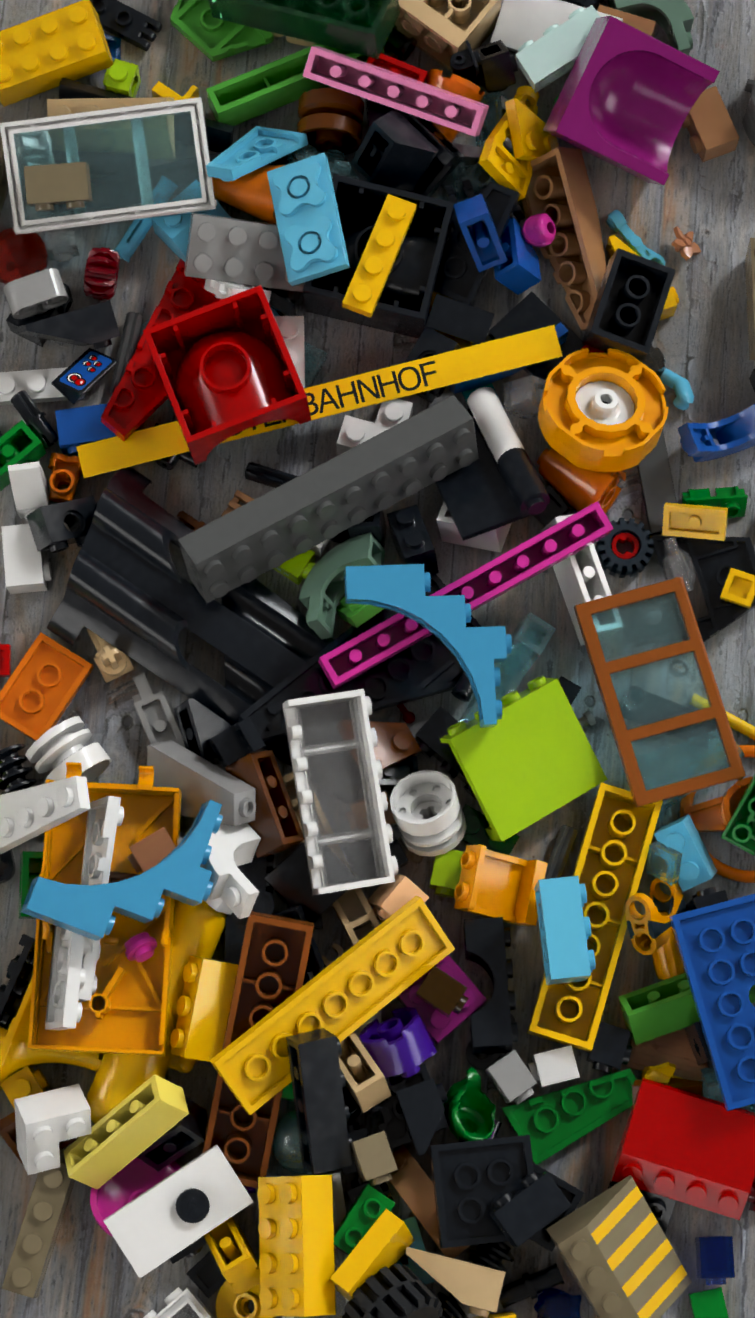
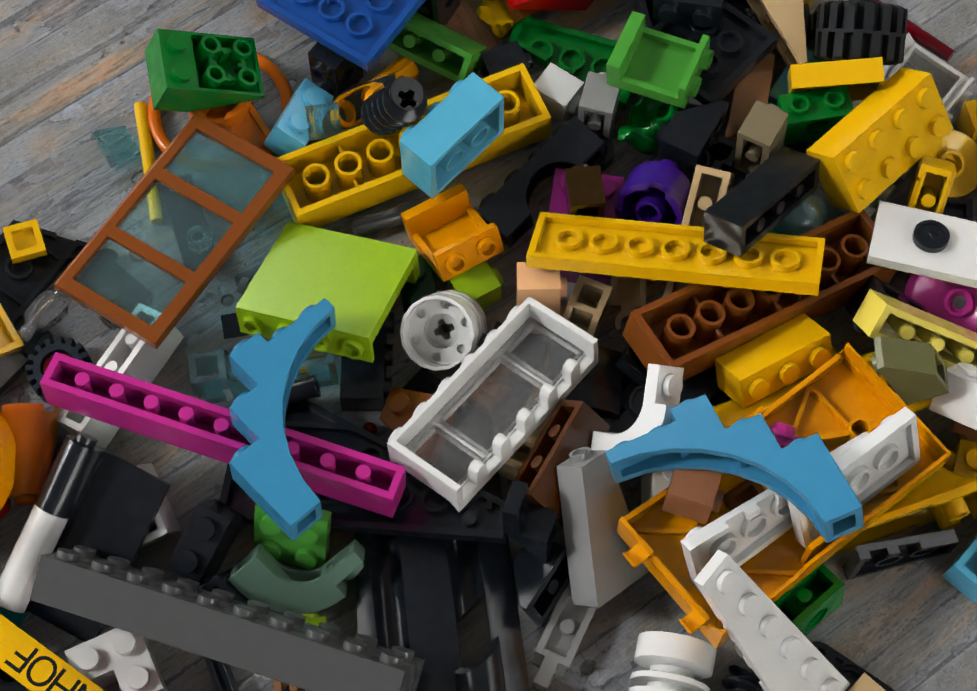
camera: 130 degrees left, 10 degrees down
(107, 1078) = (910, 368): none -> olive slope
(494, 1134) = (658, 63): none -> bright green panel
(615, 901) = (394, 106): none -> black piece

